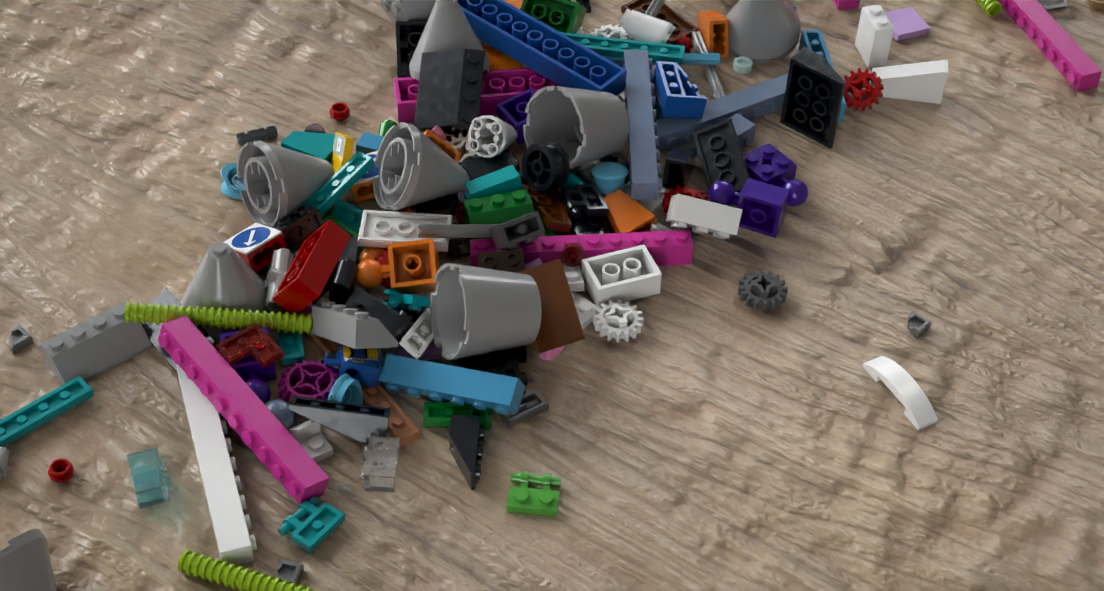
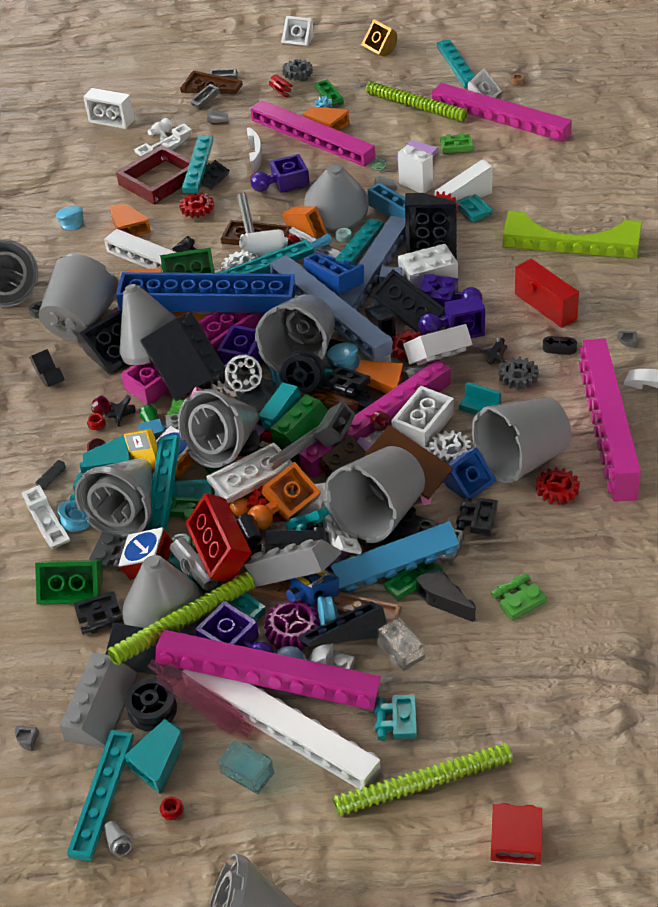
camera: 30 degrees left, 0 degrees up
(93, 420) = (156, 755): none -> teal slope
(129, 375) = (149, 704): none -> black wheel
(165, 395) = (199, 698): none -> clear pink plate
(173, 269) = (95, 608): none -> black plate
(175, 233) = (68, 580): none -> green slope
(211, 180) = (45, 518): none -> white slope
(231, 226) = (106, 549): none -> dark grey plate
(251, 341) = (232, 616): clear red plate -> none
(289, 571) = (415, 761): flat silver tile -> none
(299, 226) = (169, 515): black bracket -> none
(347, 39) = (46, 368): none -> black brick
(357, 99) = (101, 405): none -> dark red tile
(370, 113) = (121, 409): none -> black piece
(580, 402) = (483, 516): none -> black plate
(607, 355) = (469, 474): none -> blue slope
(680, 418) = (556, 484): none -> red gear
(683, 346) = (520, 436): none -> light grey cone
(695, 297) = (478, 397): none -> teal panel
(739, 80) = (360, 241): none -> teal plate
(766, 258) = (496, 351): none -> black piece
(790, 136) = (433, 260): none -> white brick
(795, 387) = (610, 421): none -> dark pink brick
(835, 36) = (392, 184): none -> light grey cone
(837, 289) = (559, 345): none -> black beam
(852, 14) = (378, 164): none -> clear light blue tile
(873, 229) = (546, 292): none -> red brick
(900, 107) = (474, 208): none -> teal plate
(955, 33) = (456, 143): none -> bright green plate
(1014, 223) = (619, 241): none -> lime arch

